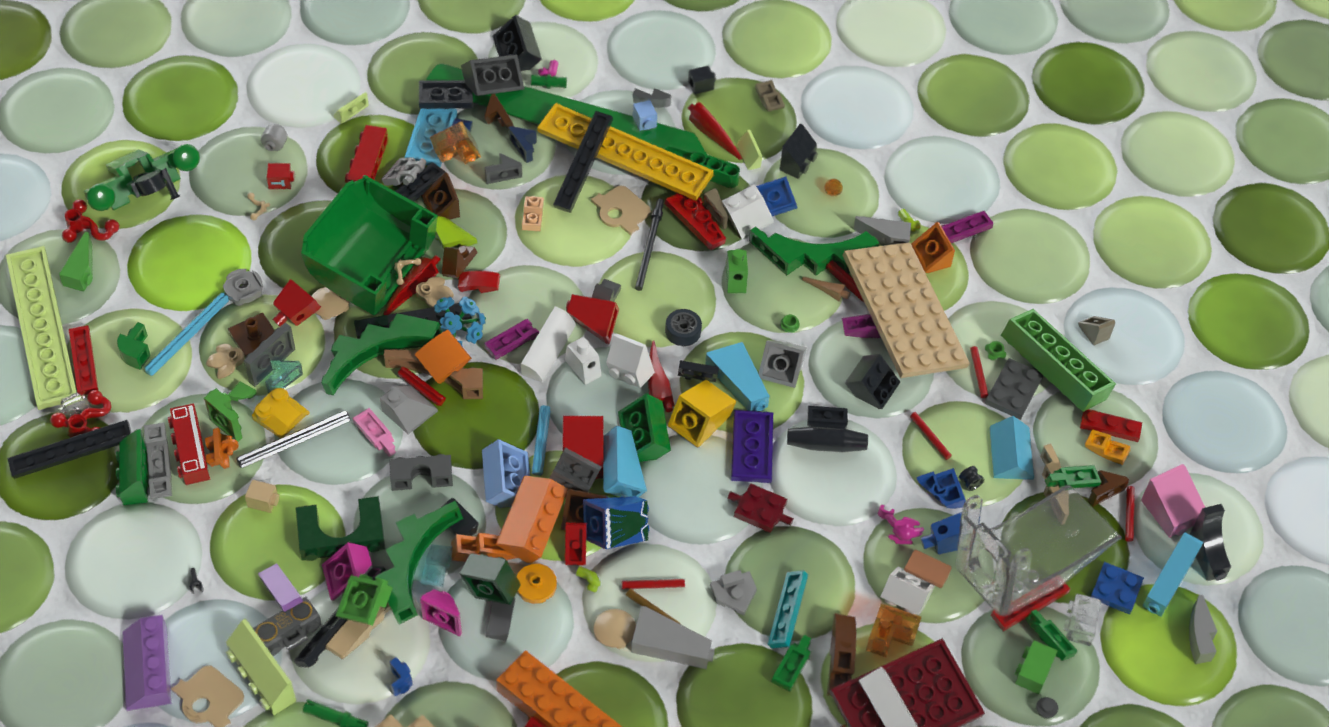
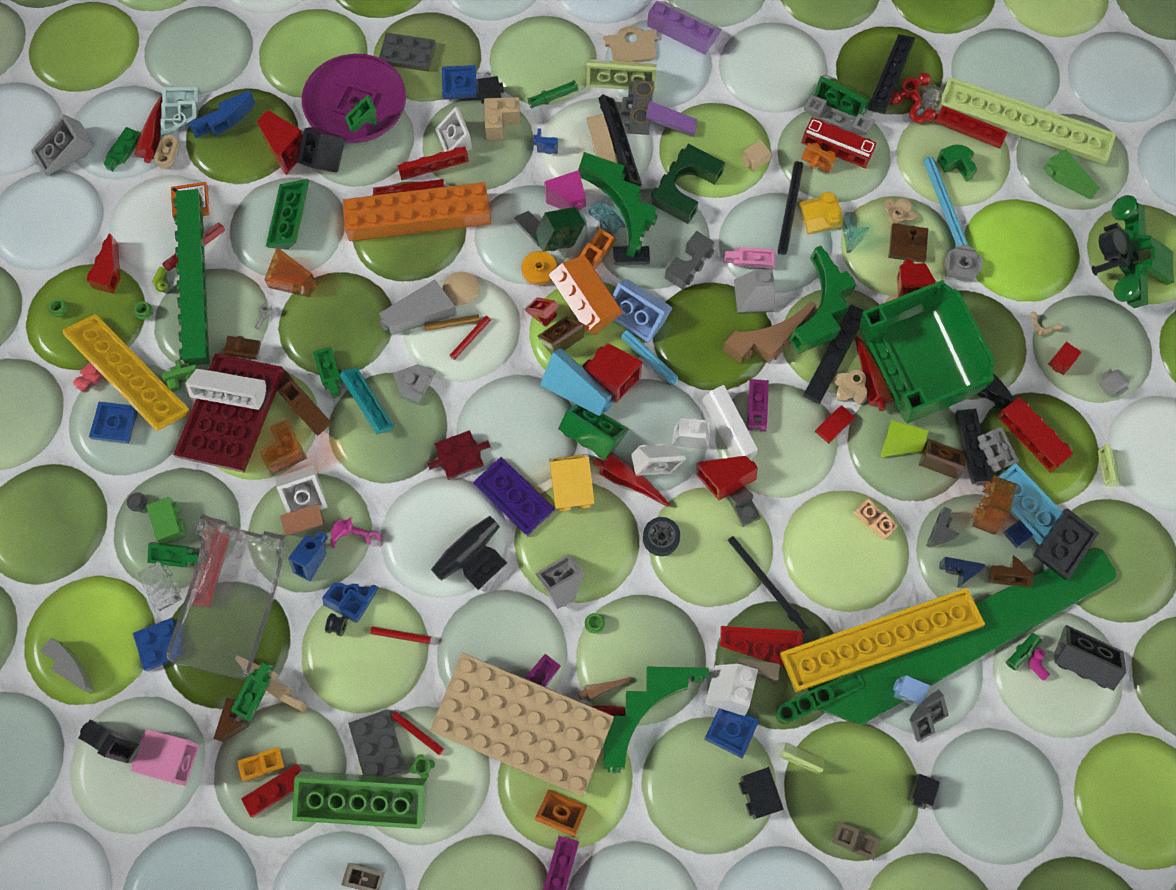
camera: 135 degrees right, 15 degrees up
(76, 223) = (1106, 183): red piece -> none
(195, 582) = (719, 84): black hand -> none
(222, 413) = (844, 169): bright green plate -> none
(242, 391) = (860, 203): bright green tile -> none
(276, 348) = (876, 235): dark grey plate -> none
(347, 561) = (650, 166): dark pink slope -> none
(363, 599) = (609, 143): bright green plate -> none
(400, 264) = (893, 373): tan piece -> none
(421, 386) = (766, 315): red axle -> none
(443, 356) = (772, 331): orange slope -> none
(454, 322) = (802, 375): dark azure plant -> none
(457, 260) = (867, 424): reddish brown slope -> none
(493, 75) = (1058, 595): dark grey slope -> none
(575, 471) = (594, 344): dark grey slope -> none
(583, 161) = (896, 592): black plate -> none
(590, 576) = (510, 303): lime arm -> none
(616, 521) = (529, 338): blue slope -> none
(625, 201) = (821, 605): tan piece -> none
(697, 371) = (606, 503): black plate -> none
(711, 127) = (857, 750): red piece -> none
(736, 264) = (679, 622): bright green torso -> none
(739, 376) = (579, 537): medium azure slope -> none
(833, 187) = (701, 796): clear orange plate -> none
(873, 381) = (483, 632): black slope -> none
(886, 231) = (610, 792): light grey slope -> none
(905, 217) = (613, 826): lime arm -> none
(1011, 450) = (329, 683): medium azure slope -> none
(1129, 529) = (197, 720): red bar -> none
(1172, 574) = (120, 688): medium azure slope -> none

